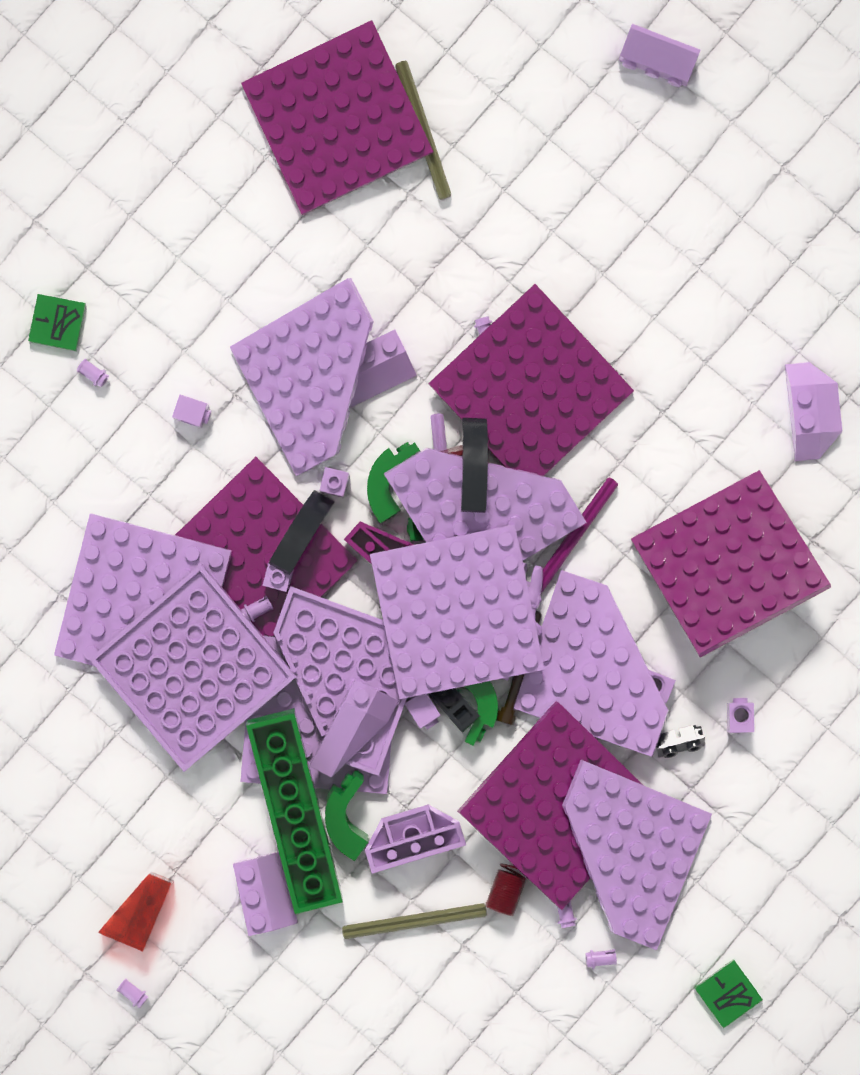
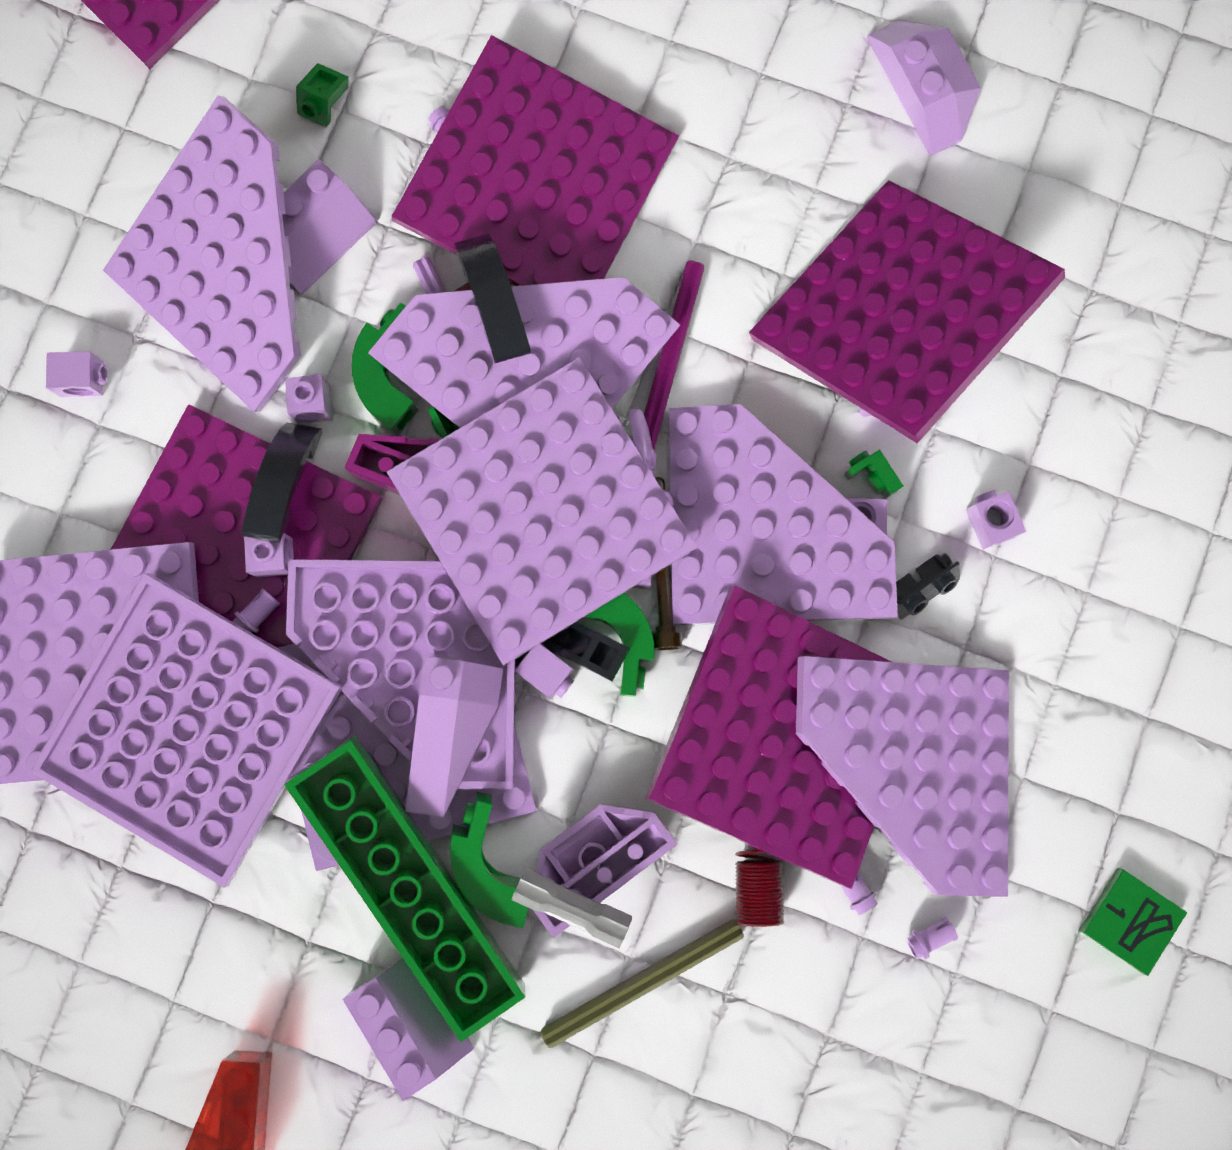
camera: 20 degrees left, 5 degrees down
(403, 872) = (573, 908): none -> light grey axle
(410, 277) = (319, 92): none -> green bracket
(677, 664) = (881, 475): none -> green bracket

